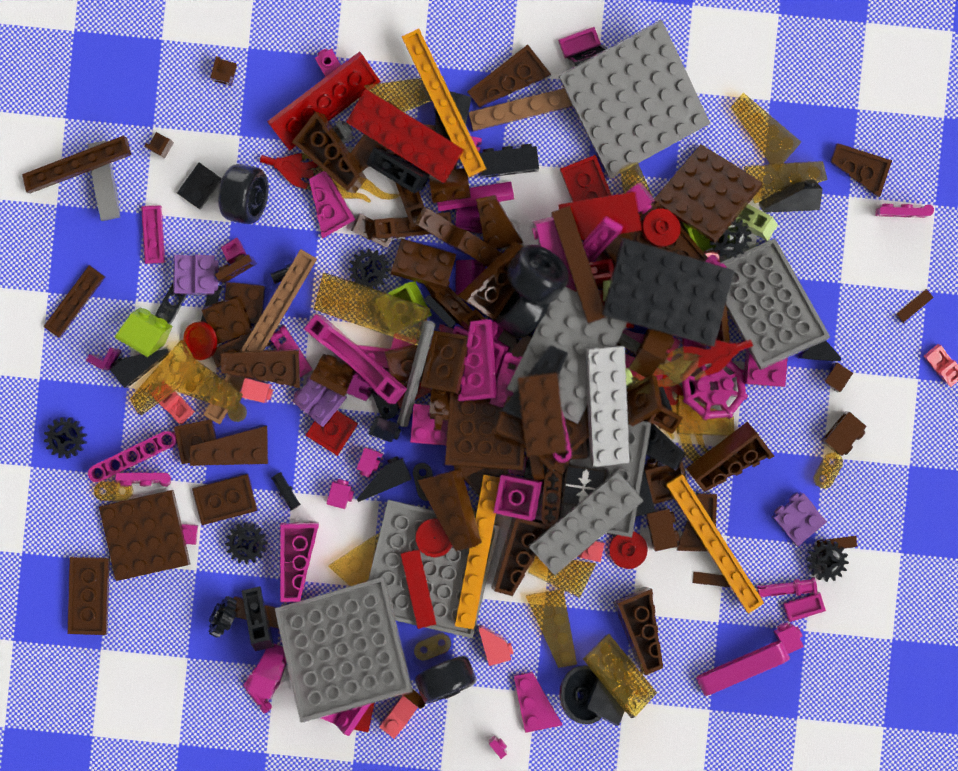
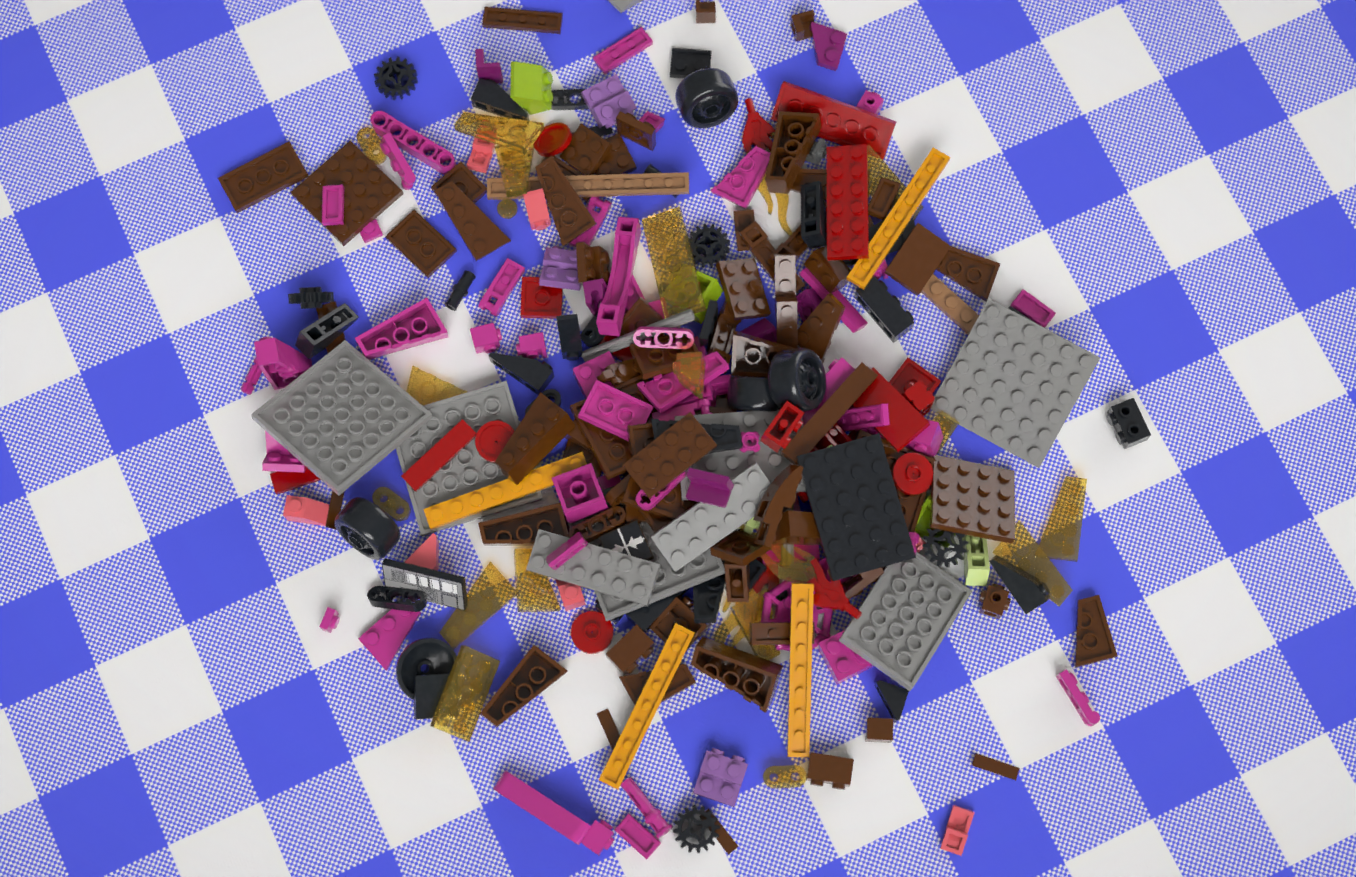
camera: 60 degrees right, 15 degrees down
(151, 554) = (333, 205): none -> dark pink tile
(242, 533) = (392, 274): black gear -> none
(252, 62) = (828, 45): none -> magenta wing
(303, 455) = (502, 286): none -> dark pink plate
(418, 103) = (883, 198): none -> reddish brown tile
(429, 371) = (657, 344): none -> beam
(471, 432) = (613, 410): none -> dark pink plate
(479, 354) = (691, 371): none -> clear yellow slope
(486, 109) = (917, 259): none -> reddish brown tile
(517, 659) = (436, 585): none -> tile
(521, 685) = (403, 604): none -> black beam
(562, 538) = (566, 551): none -> dark pink slope
(563, 337) = (754, 438): none -> dark pink plate
(571, 310) = (781, 427): none -> red brick
(587, 400) = (709, 488): none -> magenta panel
(604, 185) = (919, 397): none -> red brick
(625, 348) = (778, 495): none -> reddish brown slope
(718, 30) = (1128, 423): none -> black brick
(724, 408) = (771, 633): none -> reddish brown plate
(759, 410) = (800, 670): none -> light orange plate
(799, 223) = (989, 606): none -> reddish brown brick

